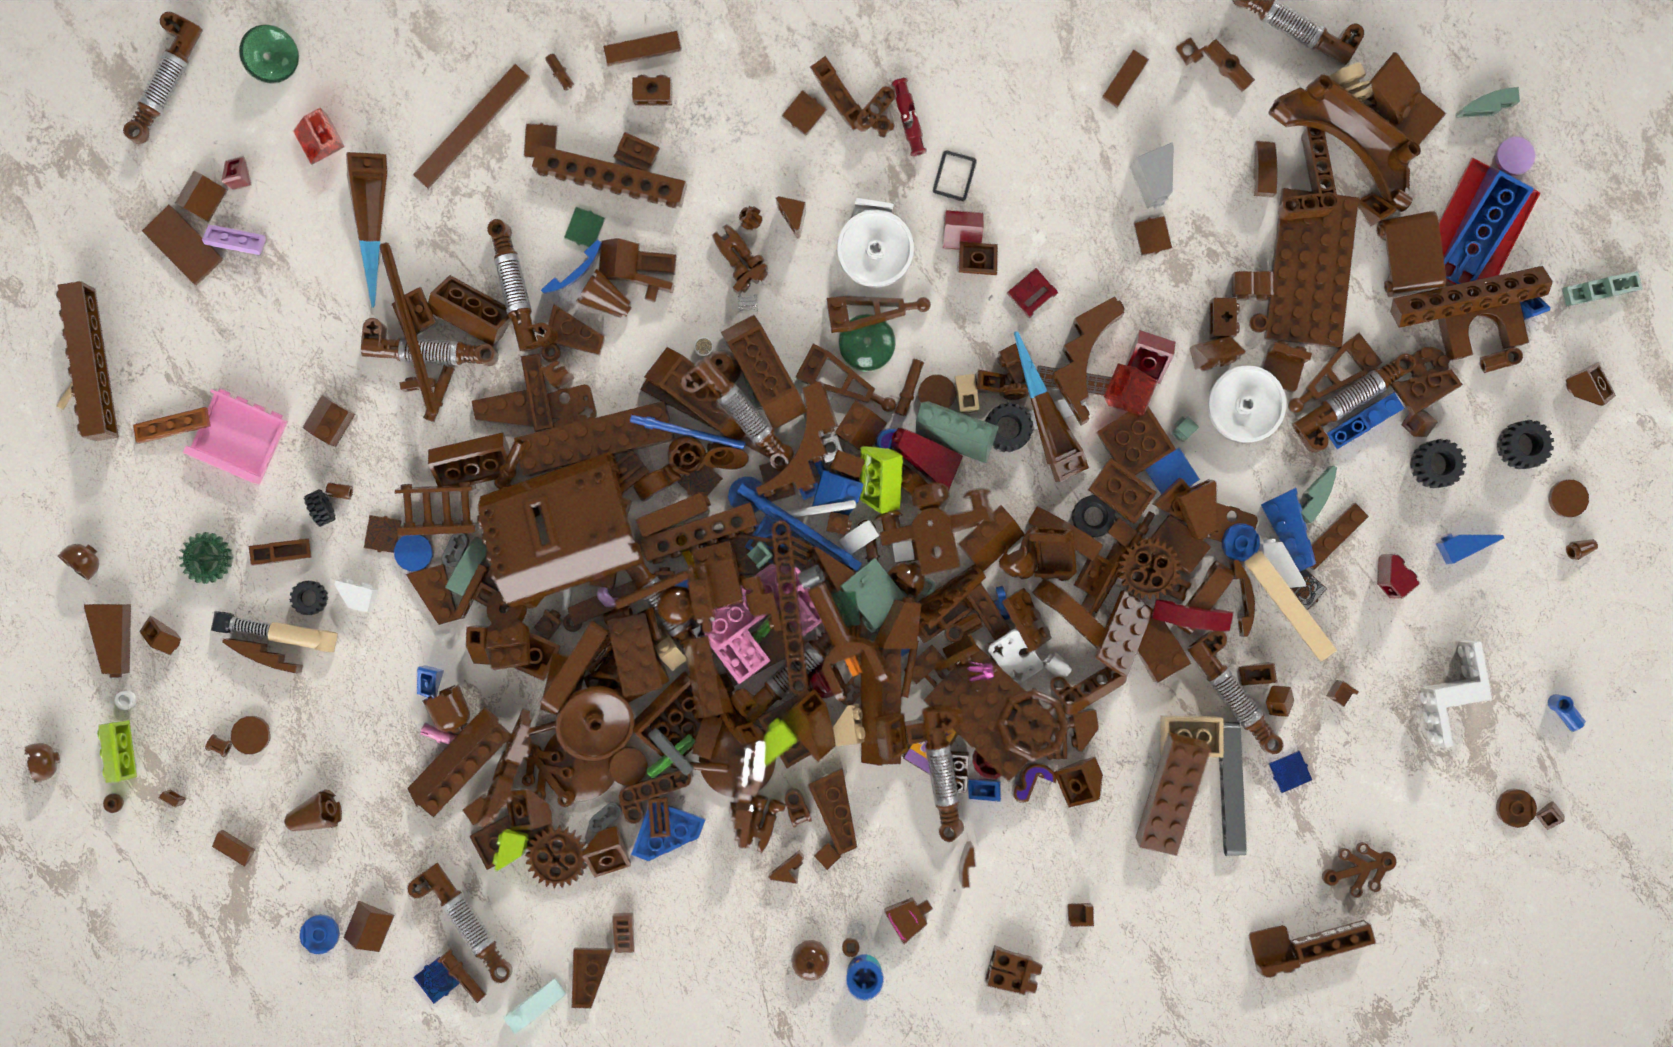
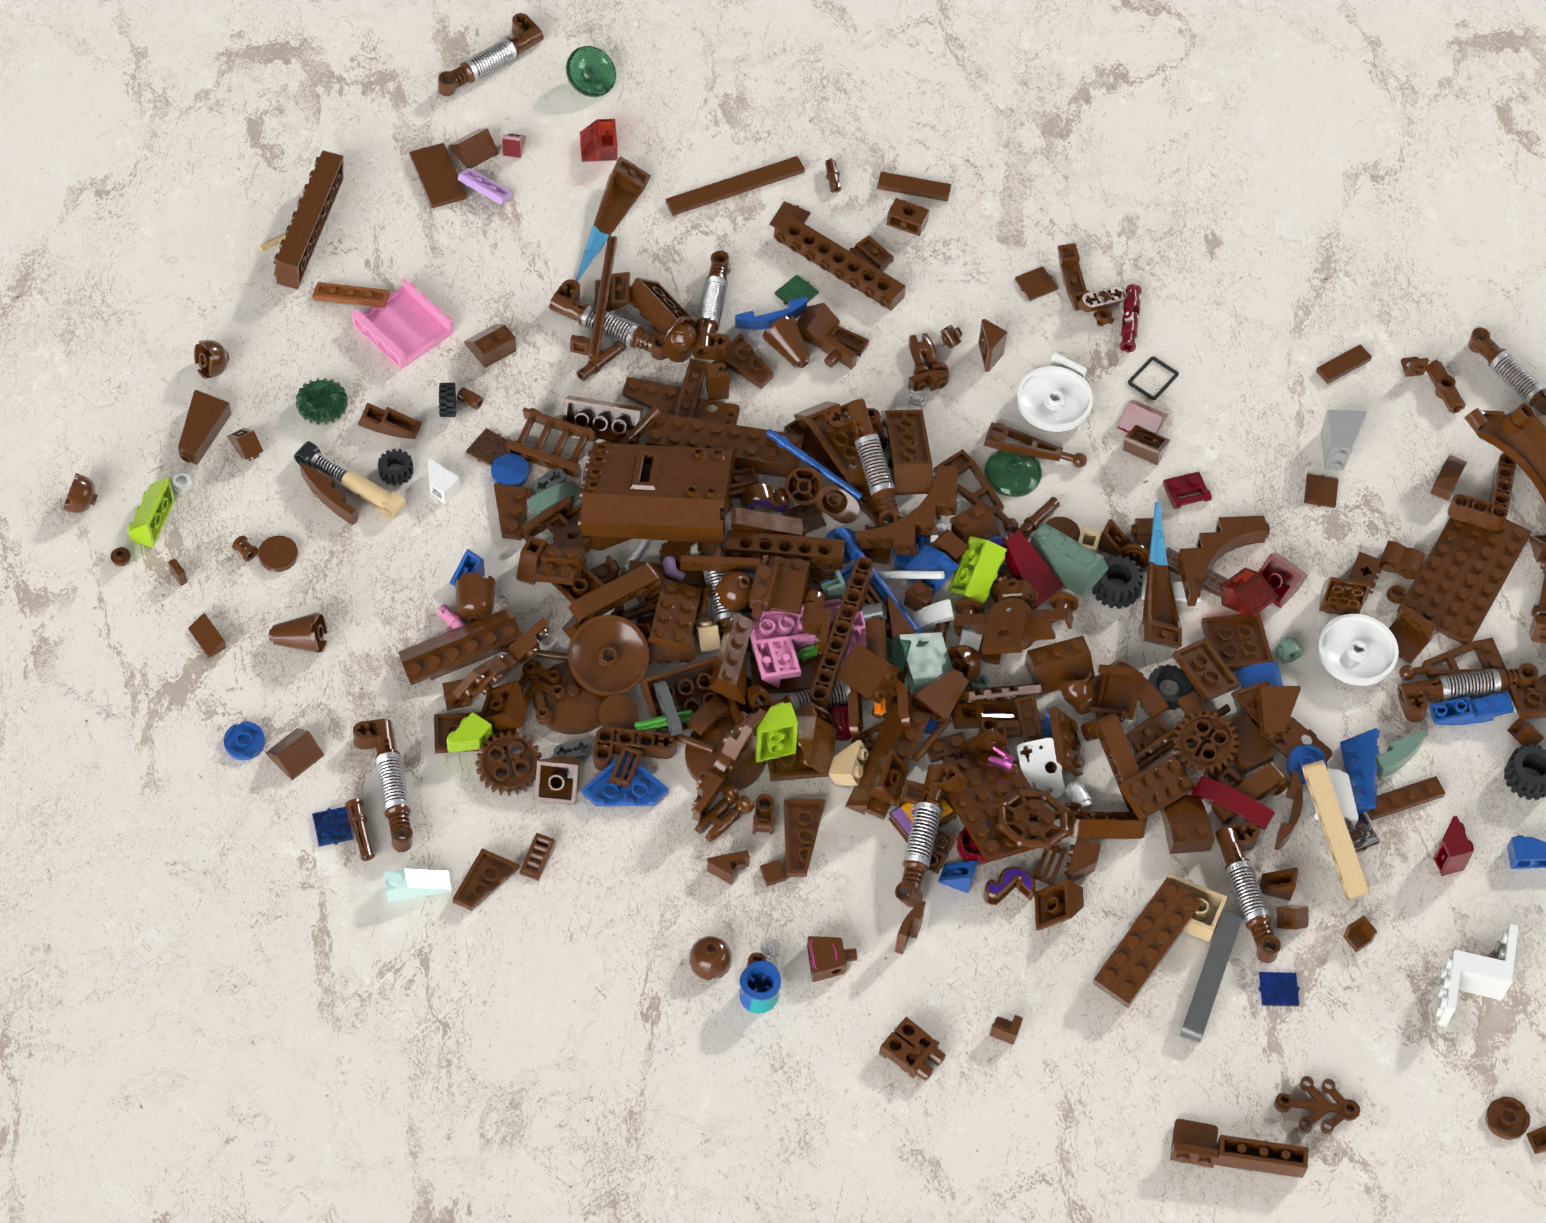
camera: 20 degrees right, 30 degrees down
(502, 343) = (680, 339): none -> reddish brown hat
(832, 650) = (868, 673): none -> reddish brown panel

